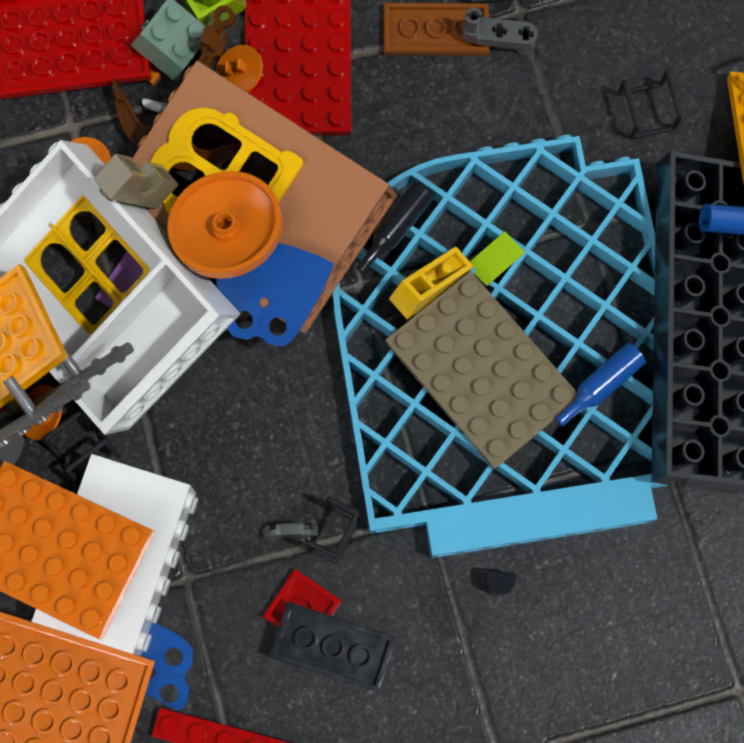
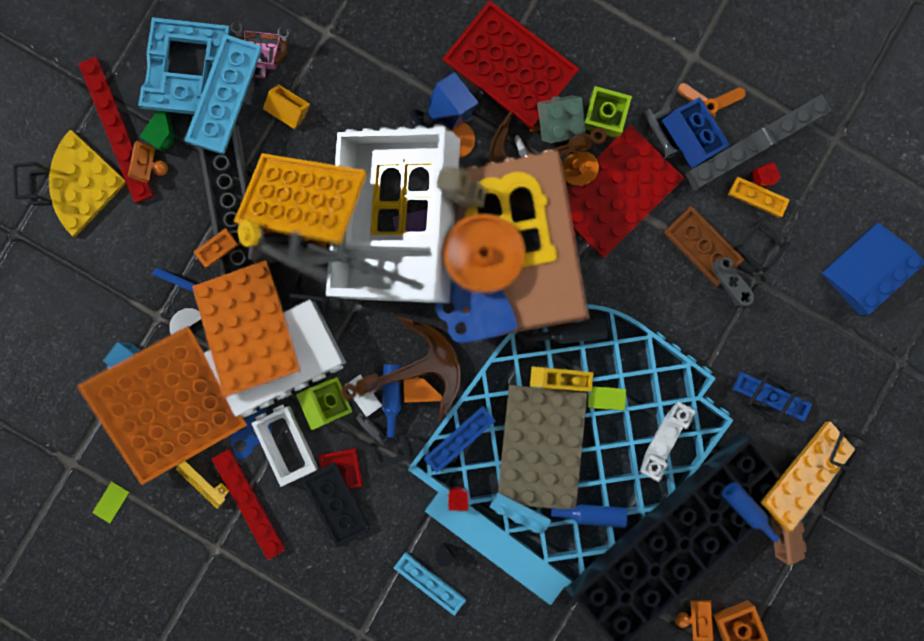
camera: 45 degrees right, 10 degrees up
(37, 124) = (448, 105): none -> blue piece
(182, 607) = (272, 451): none -> white piece
(214, 555) = (323, 403): none -> lime slope
(247, 506) = (368, 403): none -> white tile
(276, 474) = (391, 399): none -> blue piece
(290, 390) = (439, 361): none -> reddish brown piece
(301, 440) = (420, 390): none -> orange slope
(391, 444) = (459, 439): none -> blue plate
(452, 504) = (457, 499): none -> red piece
(515, 630) = (430, 583): none -> medium azure tile
(529, 455) = (520, 513): none -> medium azure plate
(591, 236) = (664, 439): none -> white slope
(651, 103) = (772, 396): none -> blue plate

